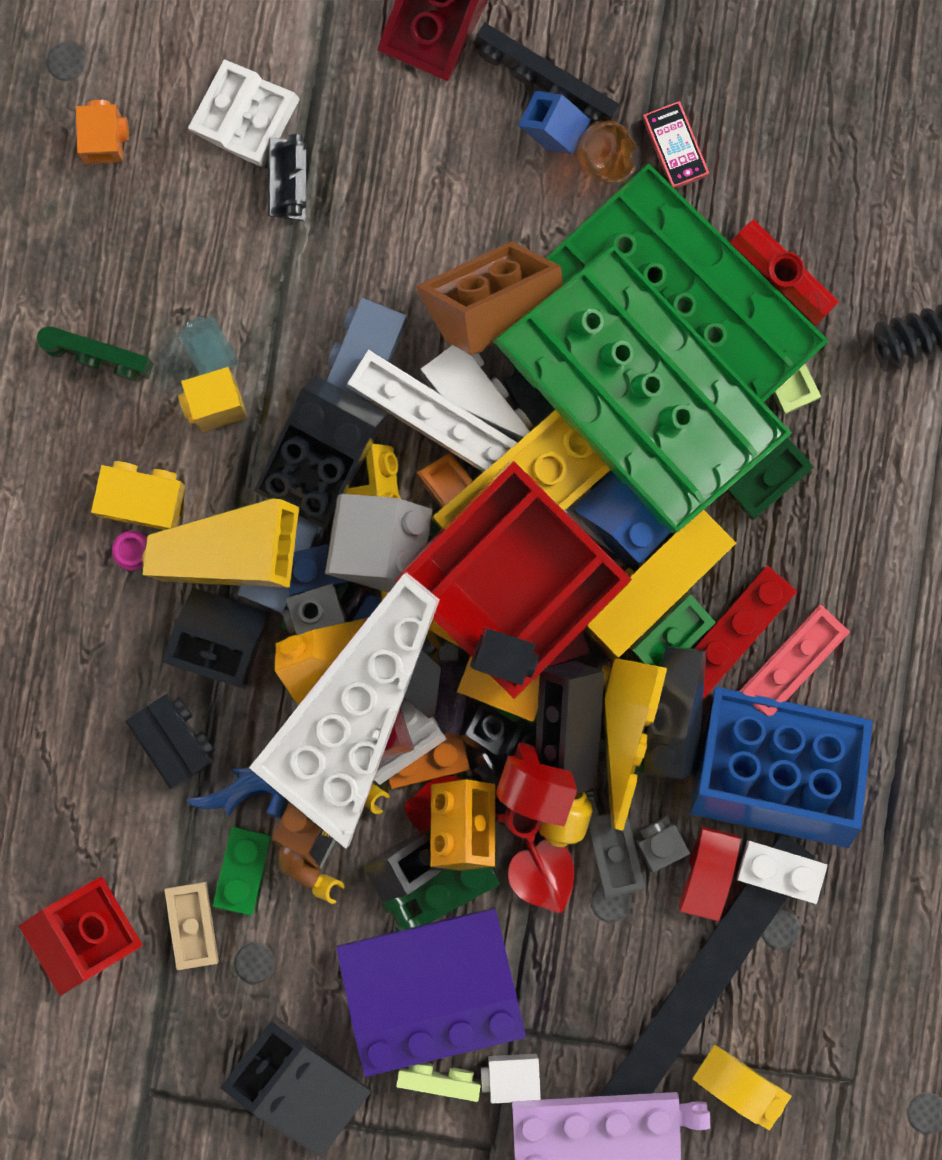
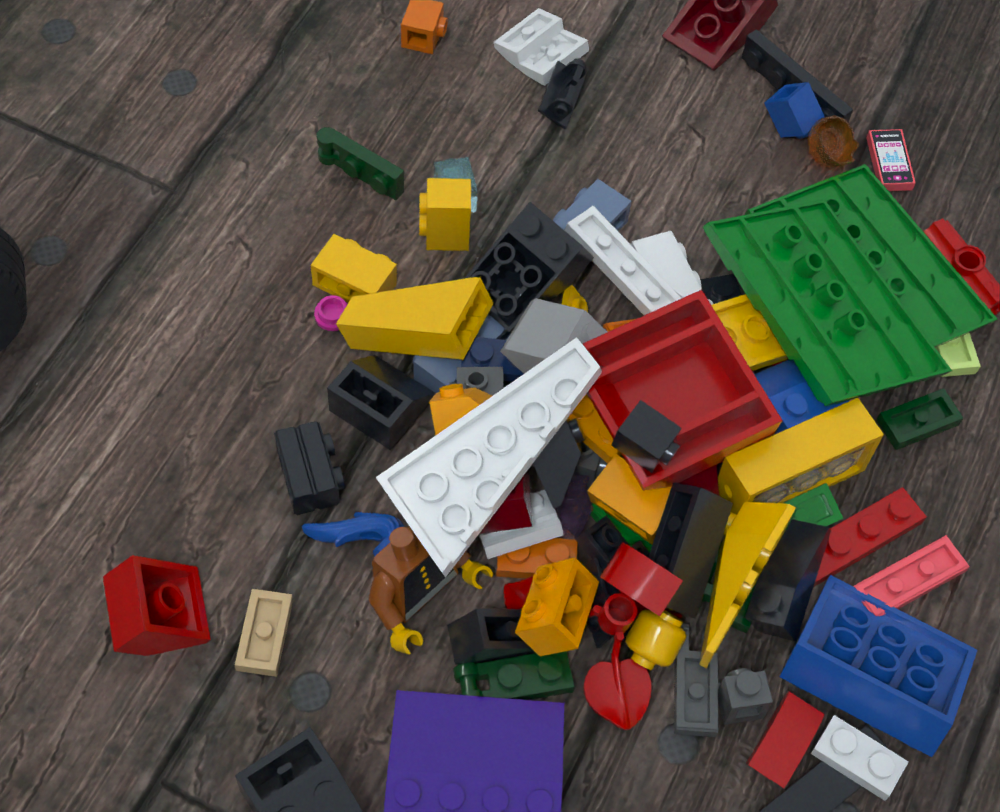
camera: 20 degrees right, 25 degrees down
(242, 870) = (330, 602): green plate -> none
(488, 294) = (691, 206): dark orange slope -> none

